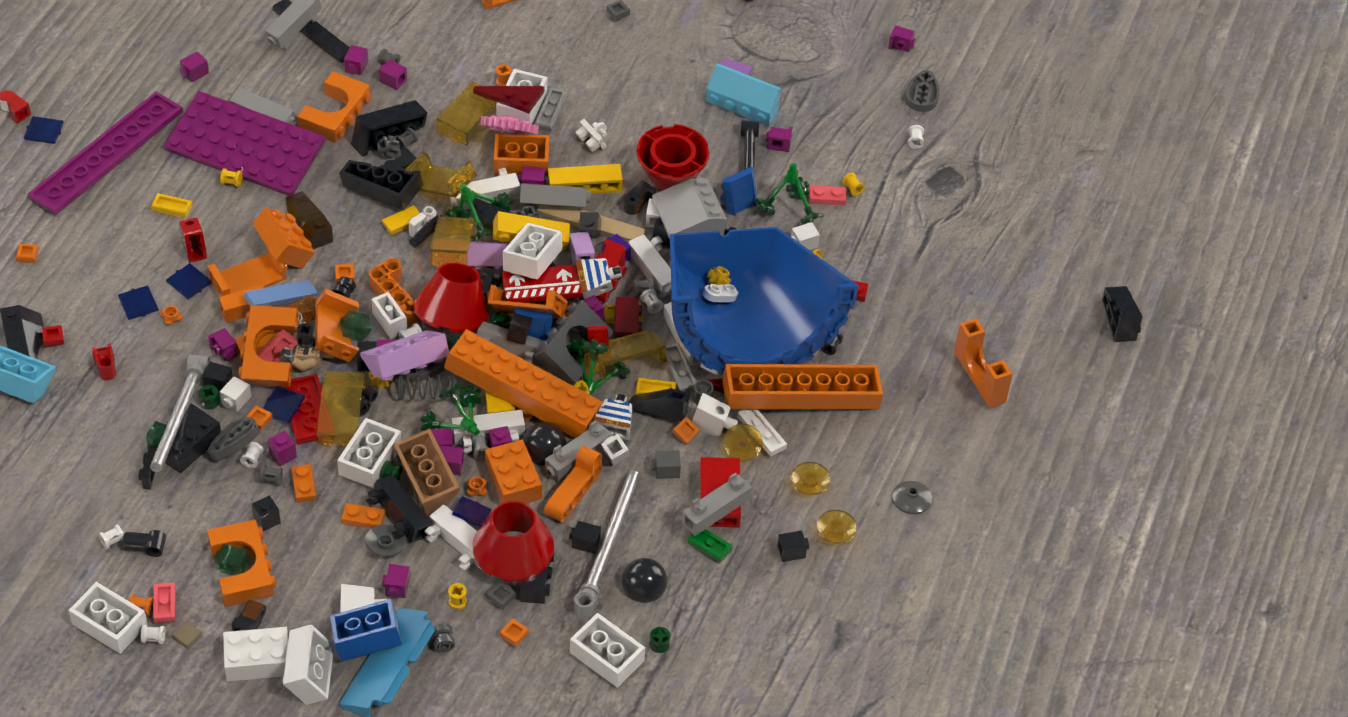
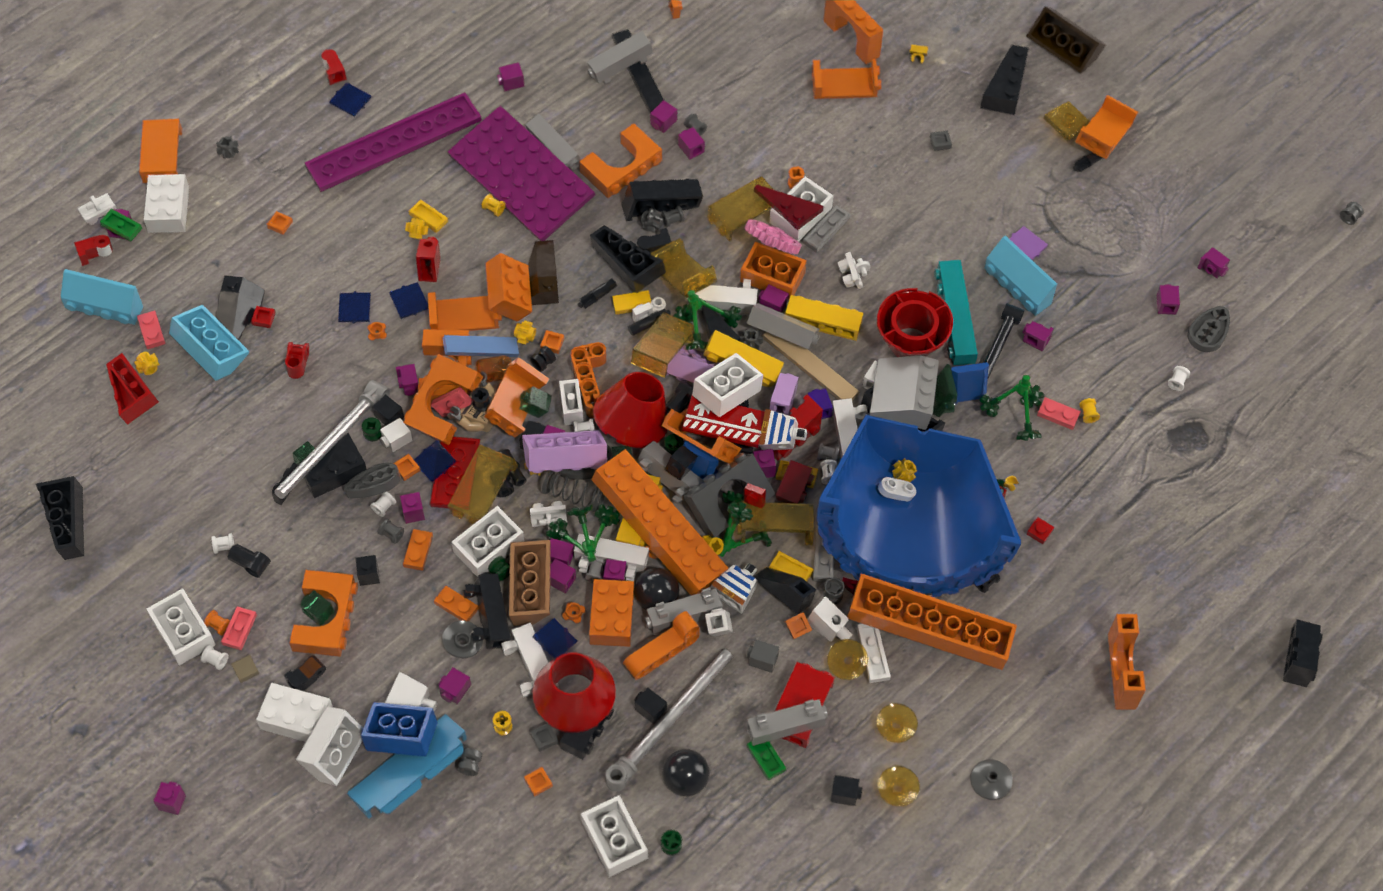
camera: 25 degrees right, 10 degrees up
(167, 217) = (416, 228): none -> yellow gear
(315, 272) = (525, 332): none -> yellow gear
(365, 224) = (594, 295): none -> black piece
(412, 415) = (545, 515): none -> white hips
(590, 223) = (804, 369): black brick -> none
(638, 197) = (867, 353): black leg -> none
(719, 163) = (954, 293): none -> teal brick
(727, 201) = (944, 393): none -> clear green slope
(806, 235) = (1012, 454): white brick -> none
(877, 78) = (1168, 299): none -> magenta brick

